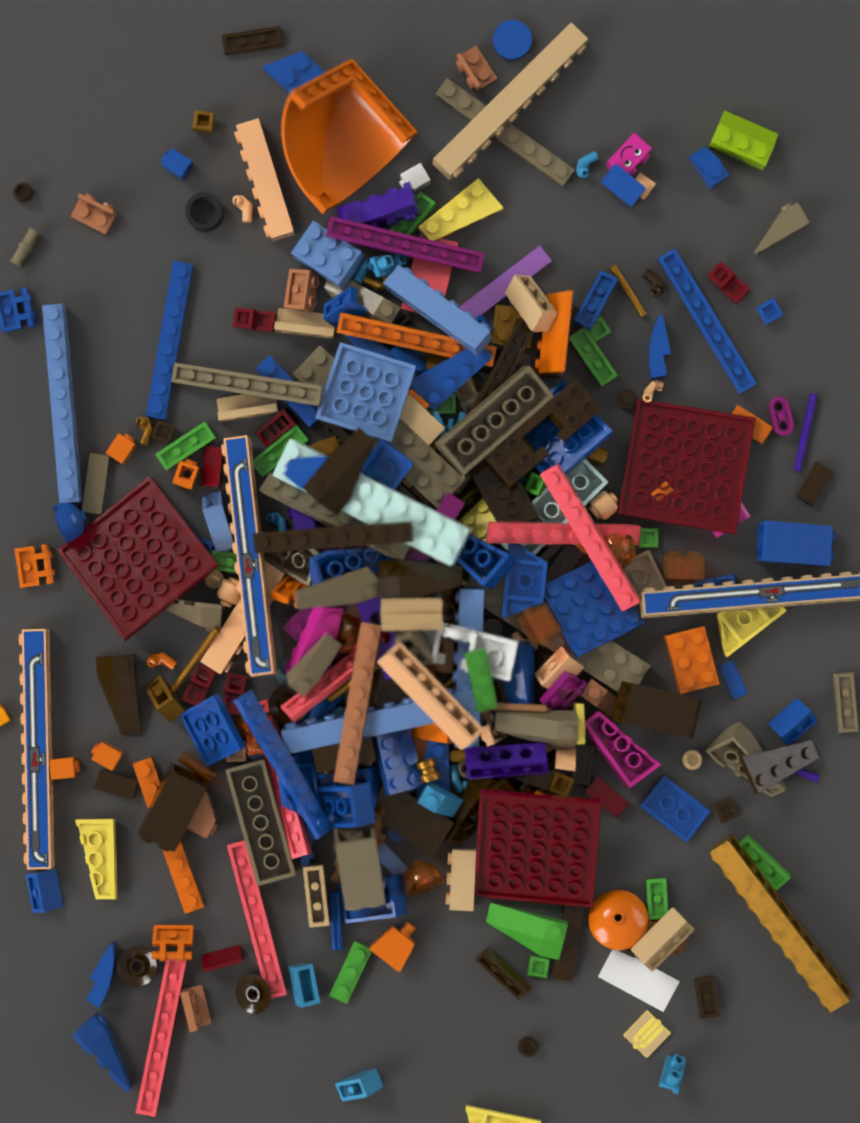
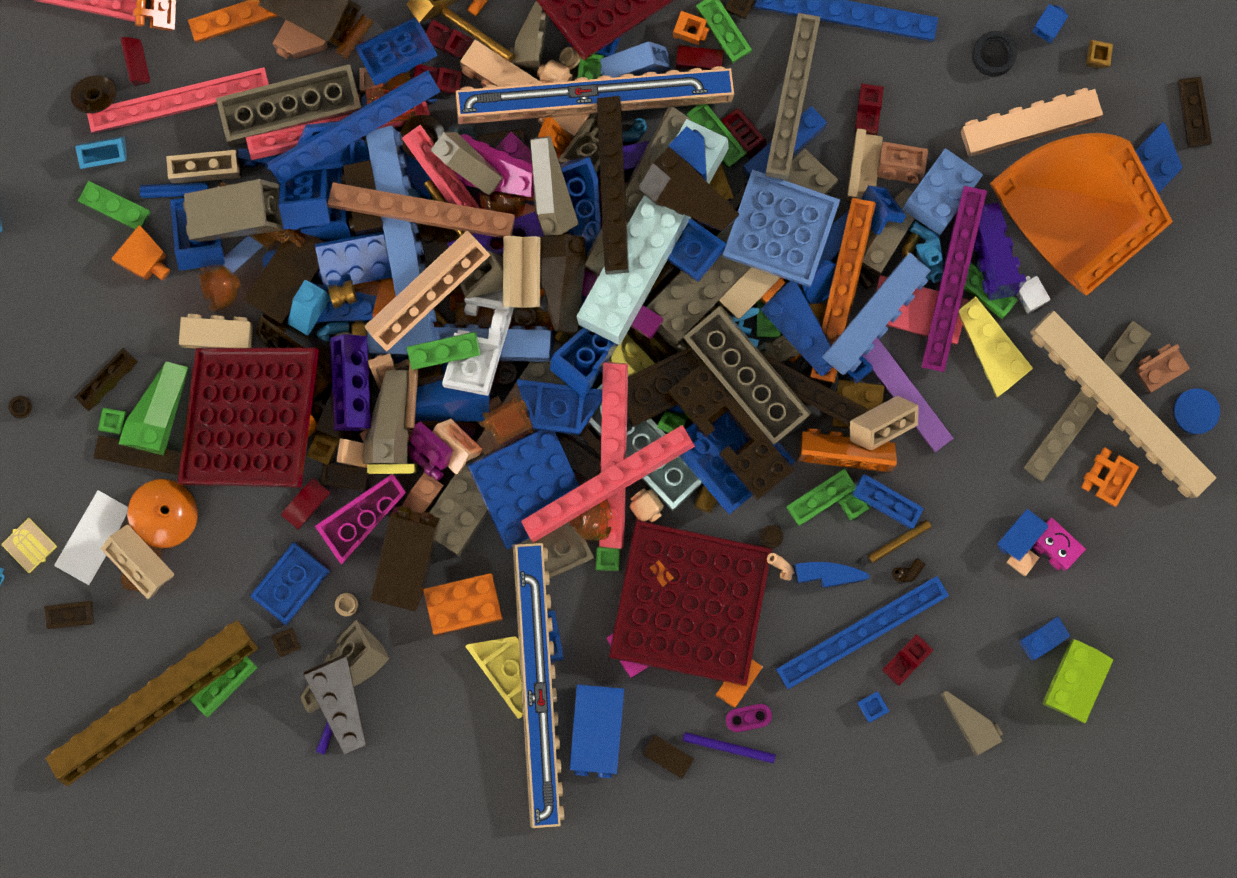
camera: 90 degrees right, 5 degrees down
(195, 1007) = (80, 29): nougat bracket -> none
(244, 407) = (768, 95): tan panel -> none
(245, 206) = (1001, 100): light nougat arm -> none
(573, 107) = (1116, 480): none -> orange plate
(584, 163) = (1049, 492): dark azure arm -> none
(656, 897) = (187, 559): bright green plate -> none
(683, 566) = (572, 598): clear orange brick -> none
(733, 679) = (439, 655): blue sticker -> none
(793, 722) = (386, 724): blue panel -> none
(846, 702) = (408, 788): dark tan tile -> none

